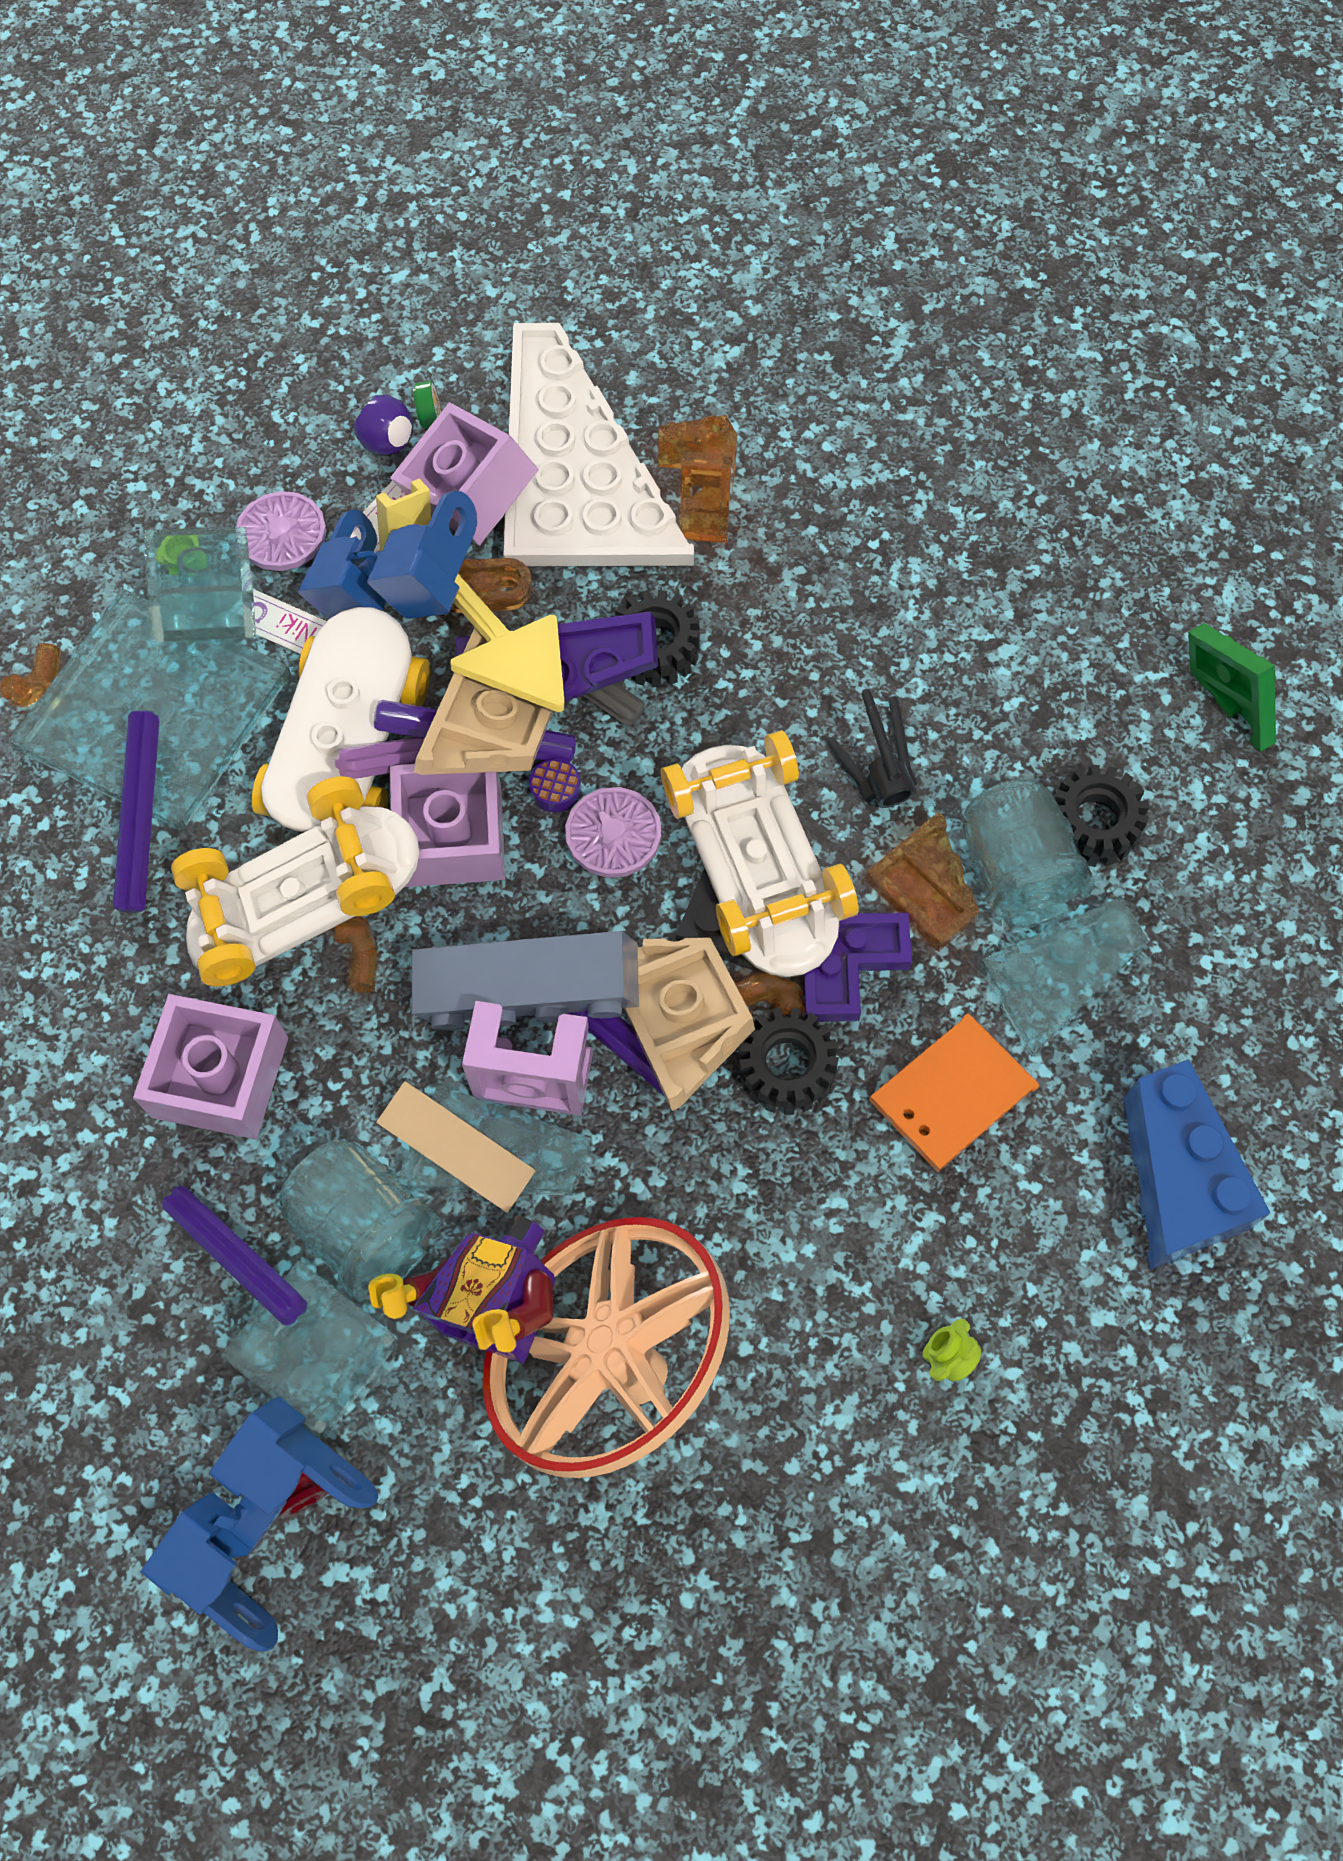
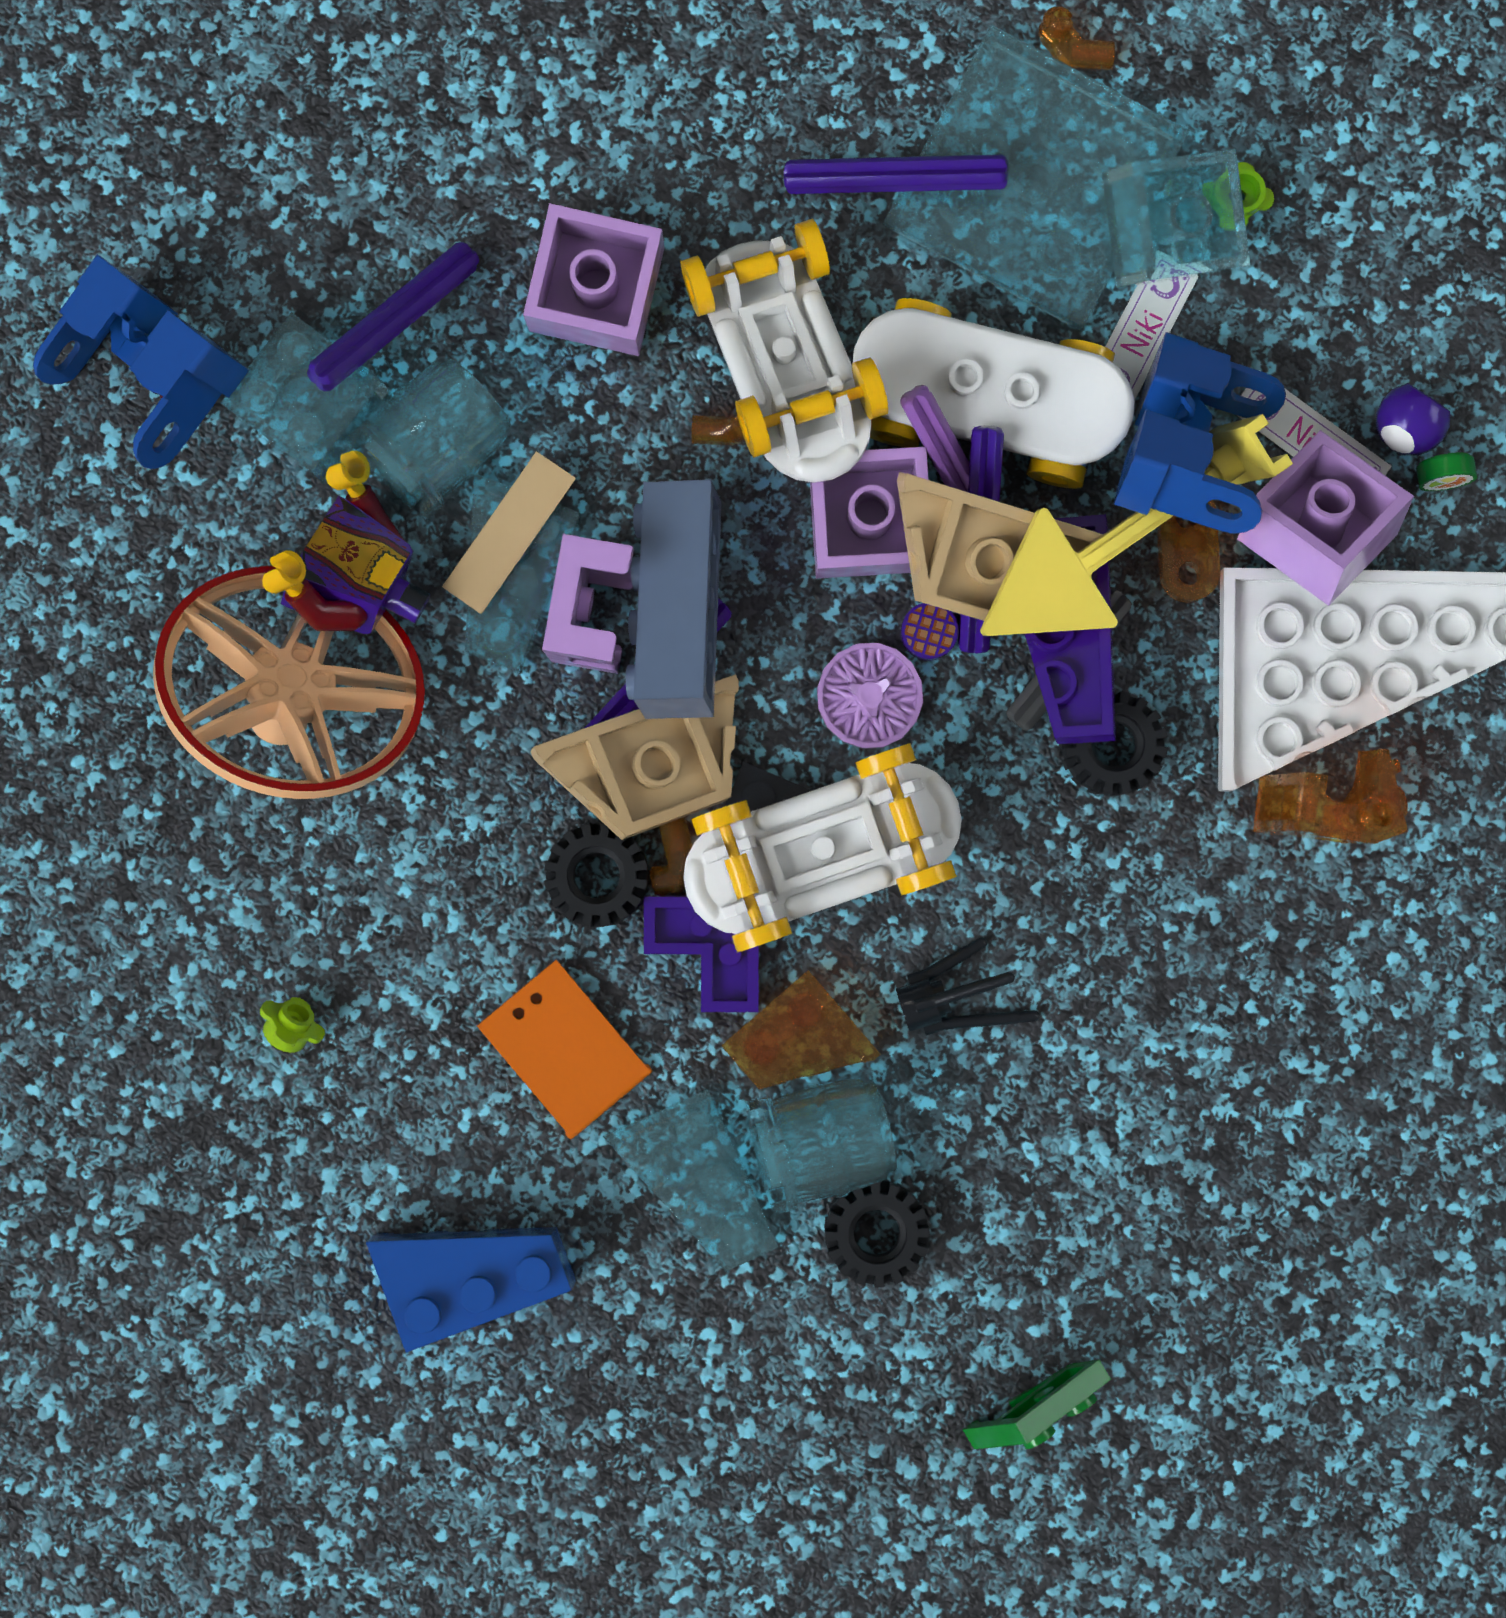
camera: 90 degrees right, 20 degrees up
(283, 530) = (1271, 307): lavender wheel -> none

